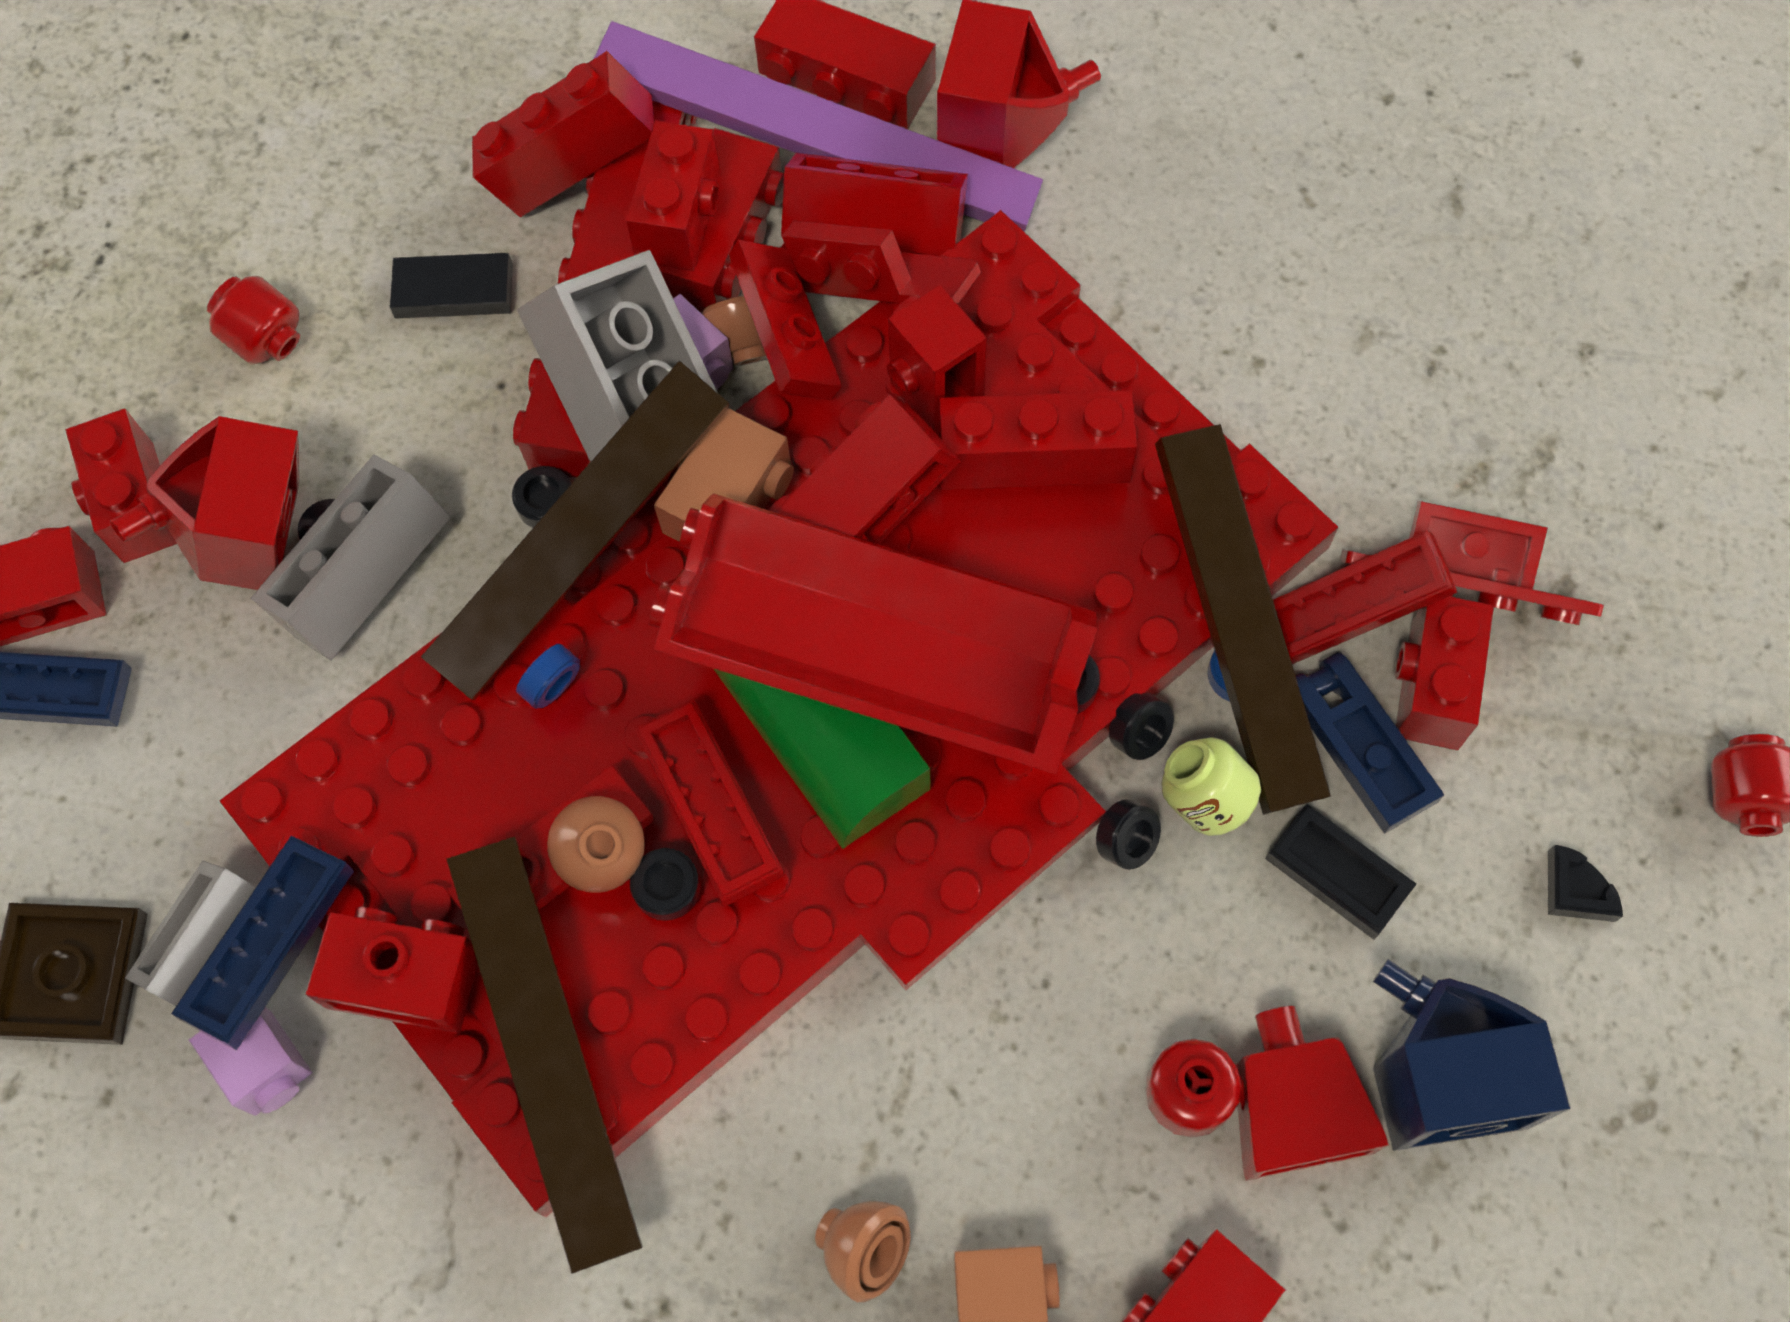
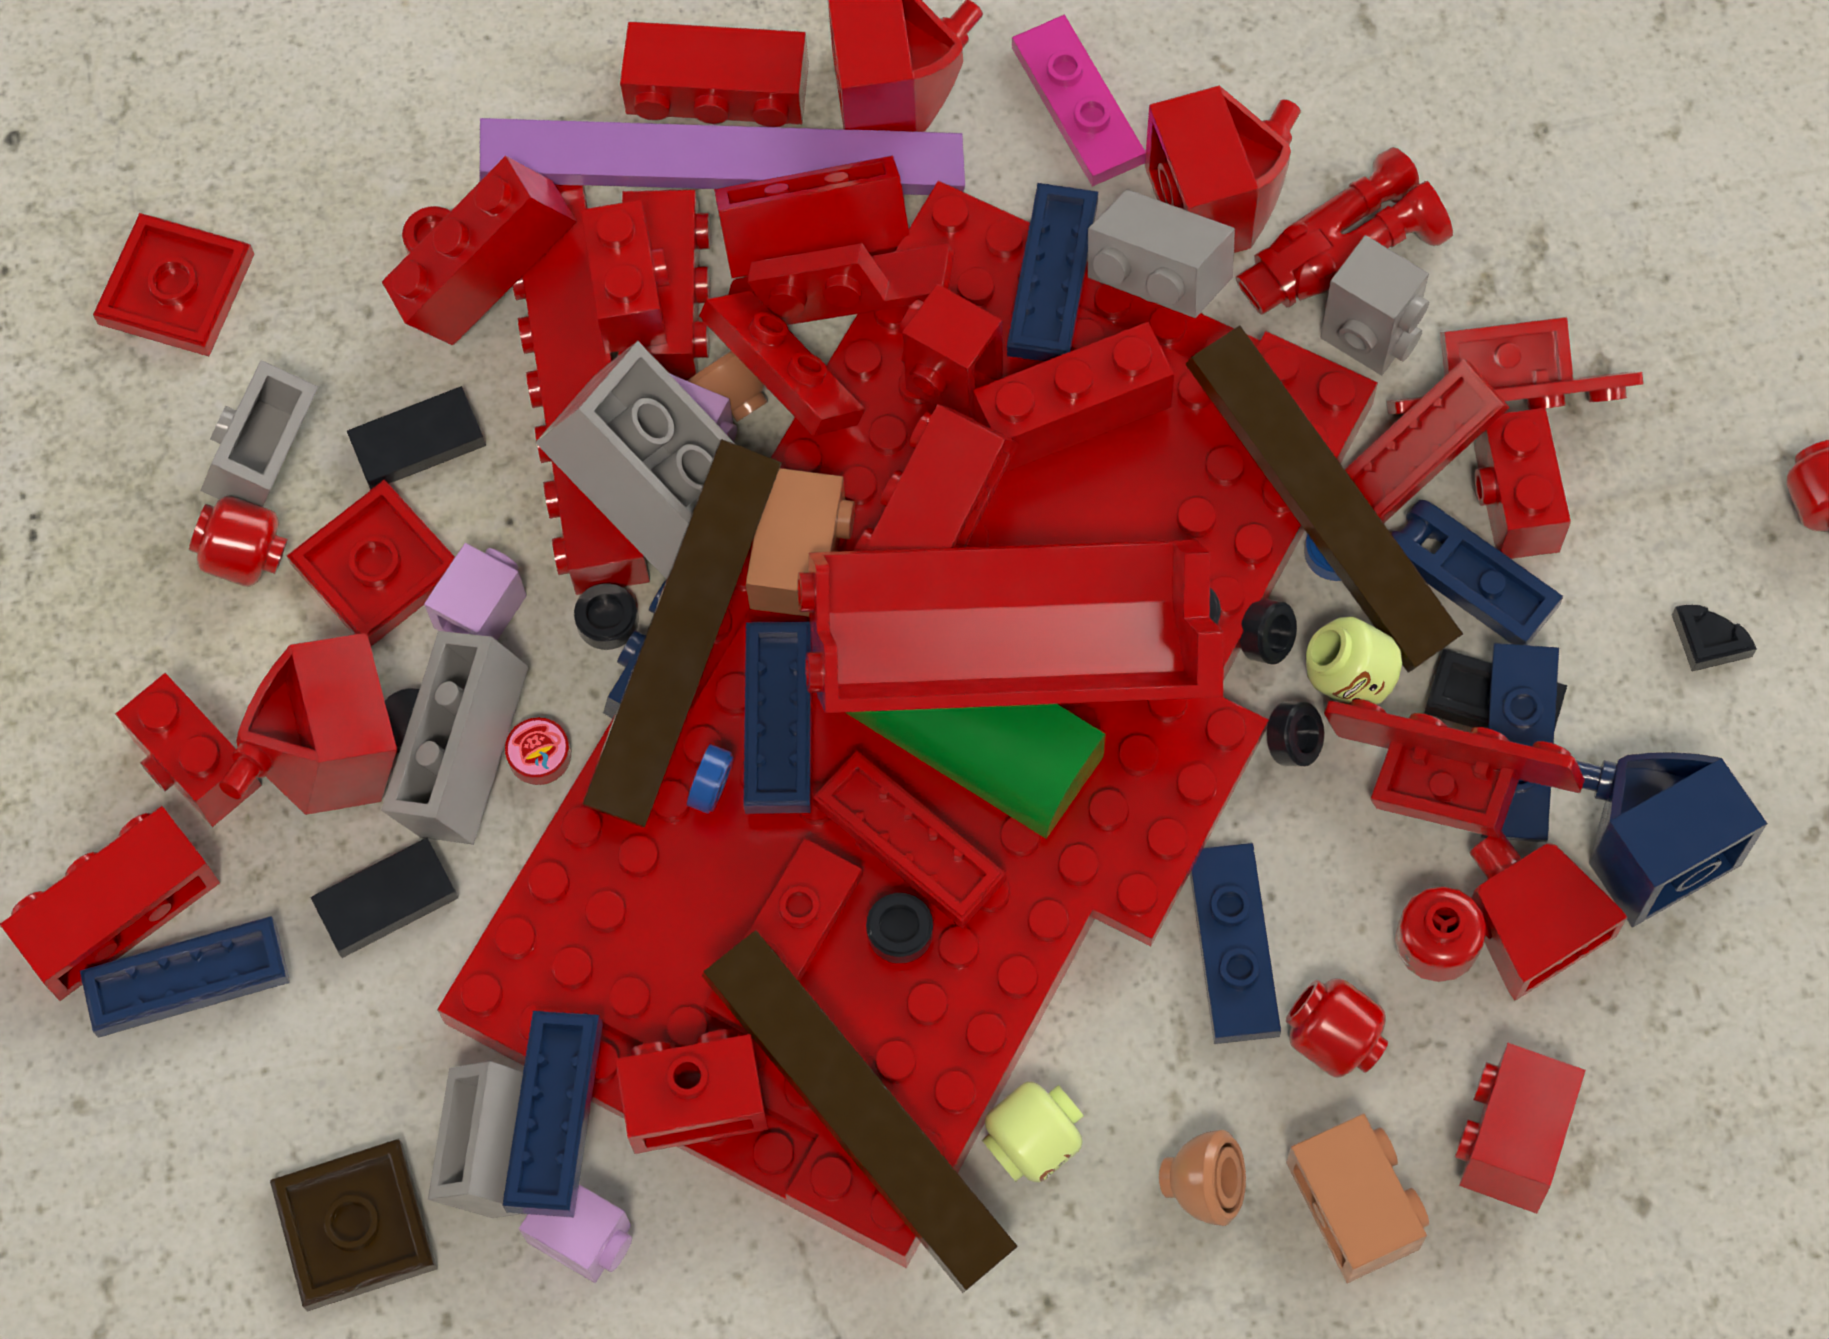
camera: 20 degrees left, 0 degrees up
(234, 680) = (384, 897): none -> black tile
(309, 234) = (257, 435): none -> light grey brick
(313, 90) = (174, 284): none -> red tile
(366, 382) = (373, 563): none -> red tile
(428, 596) = (538, 751): none -> tile
(434, 439) = (476, 594): none -> lavender brick
(595, 844) = (827, 912): nougat brick -> none
(624, 663) = (777, 718): none -> dark blue plate
(714, 1133) = (1033, 1131): none -> yellowish green head
(988, 1019) = (1234, 945): none -> dark blue plate
(1054, 1143) = (1337, 1027): none -> red head
(1066, 320) = (1052, 273): none -> dark blue plate
(1162, 186) = (1078, 100): none -> dark pink plate
(1174, 335) = (1161, 253): none -> light grey brick
(1262, 281) = (1219, 159): none -> red piece
(1262, 930) = (1449, 772): none -> red bracket
(1328, 388) = (1315, 248): none -> red piece
(1347, 923) = (1524, 712): none -> dark blue plate
(1363, 453) = (1375, 306): none -> light grey brick

